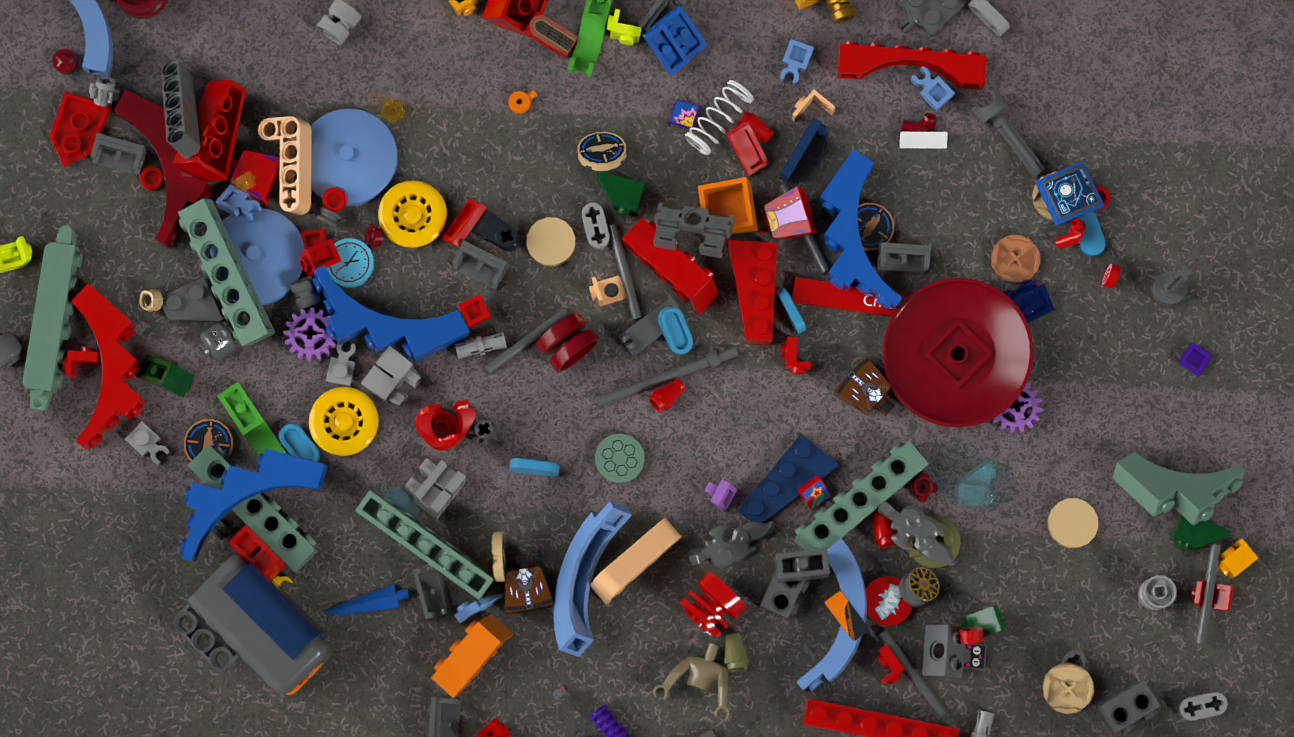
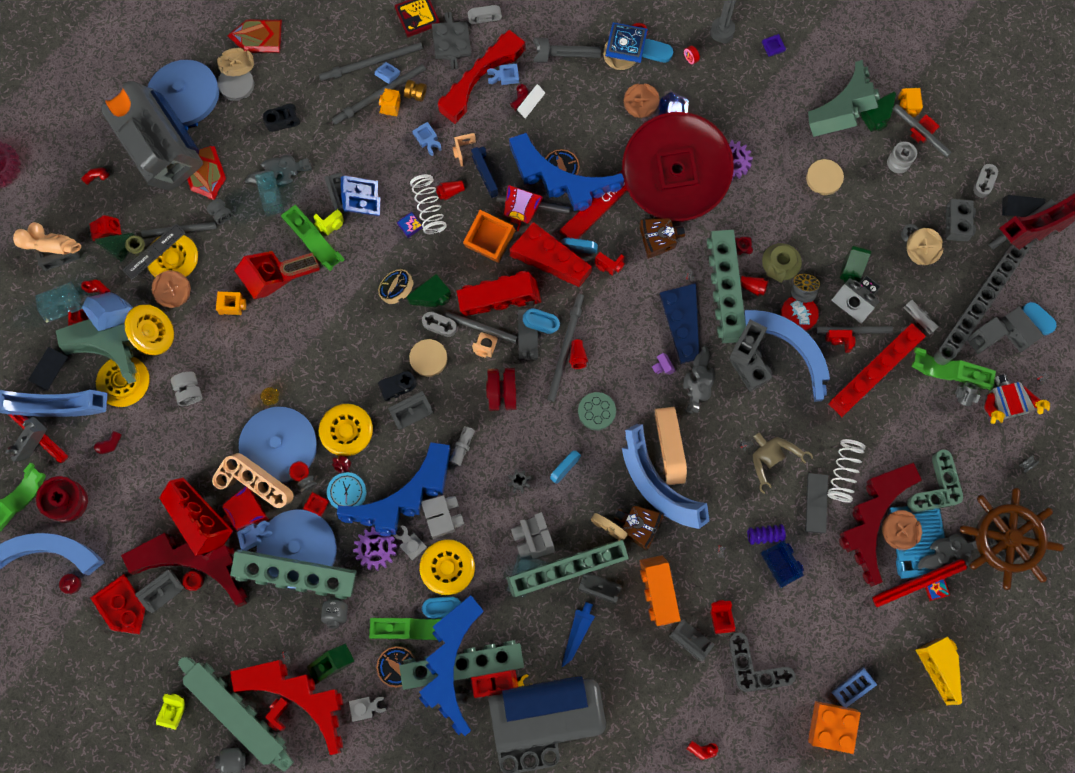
camera: 55 degrees left, 5 degrees down
(104, 91) = (110, 570): light grey gear -> none
(155, 302) = (275, 633): tan axle -> none
(180, 108) = (163, 526): dark grey beam -> none
(192, 303) = (295, 613): dark grey wing -> none
(245, 181) = (243, 518): clear yellow plate -> none
(305, 291) = (345, 532): dark grey wheel -> none
(319, 255) = (328, 507): red bracket -> none
(441, 428) = (499, 506): red piece -> none
(464, 223) = (376, 401): red tile -> none
(469, 610) = (628, 572): medium blue plate -> none
(474, 311) = (438, 433): red tile -> none
(521, 96) = (325, 311): orange piece -> none
(525, 342) = (480, 415): dark grey bar -> none
(712, 604) = (732, 417): red wheel -> none
(713, 225) = (496, 247): dark grey piece -> none
(735, 653) = (770, 425): olive cone -> none
(747, 148) = (459, 201): red tile -> none
(814, 492) = (702, 309): tile -> none
(846, 616) = (796, 340): sticker -> none
(903, 257) = (595, 158): dark grey hinge -> none
(914, 522) = (764, 262): dark grey piece -> none
(971, 635) = (860, 275): red axle -> none
(974, 487) = (765, 215): clear light blue slope -> none
(1074, 235) = (653, 58): red arm -> none

